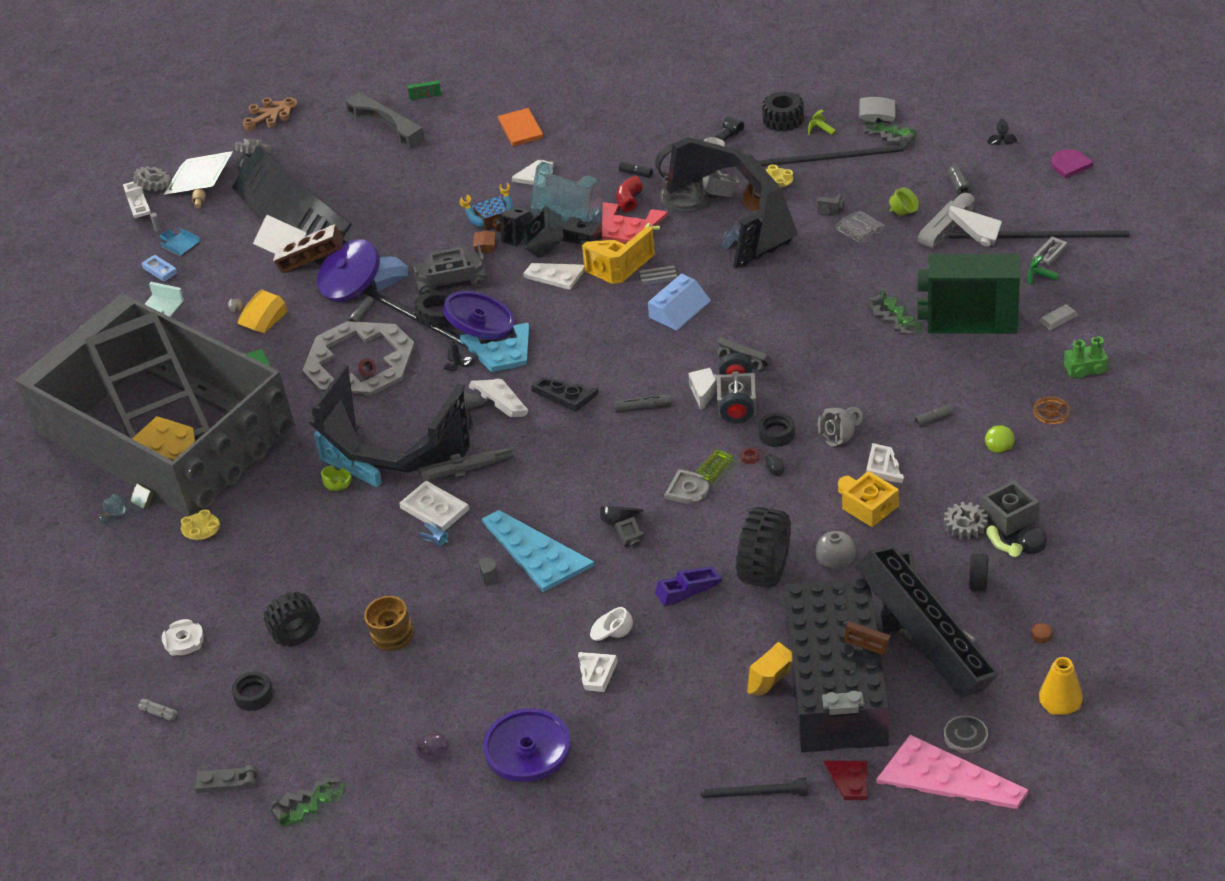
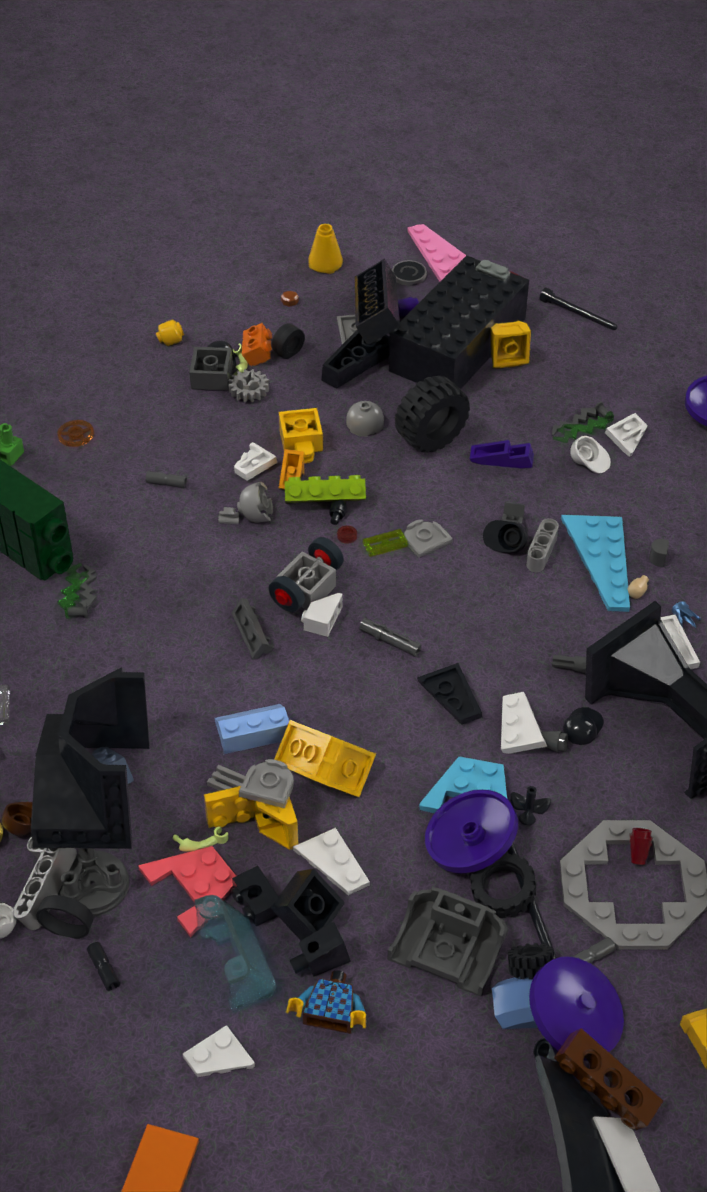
camera: 150 degrees left, 5 degrees up
(397, 272) = (528, 959): none -> black tyre
(486, 241) = (373, 965): dark orange piece -> none
(486, 538) = (638, 587): none -> tan cylinder
(587, 524) = (542, 545): none -> light grey beam
(590, 300) = (325, 758): none -> yellow bracket
(617, 249) = (268, 783): none -> light grey tile
(626, 192) = (156, 923): red cylinder -> none
(629, 668) = (575, 427): none -> piece
(776, 439) = (299, 527): black tyre -> none
(796, 463) = (325, 490): none -> lime brick
(841, 467) = (292, 466): none -> light orange slope
(866, 638) = (444, 280): reddish brown tile -> none
(920, 683) = (406, 305): none -> dark purple brick
(999, 439) = (143, 431): lime hair -> none
(1003, 555) = (256, 344): none -> orange brick
(1094, 526) = (170, 332): none -> yellow head

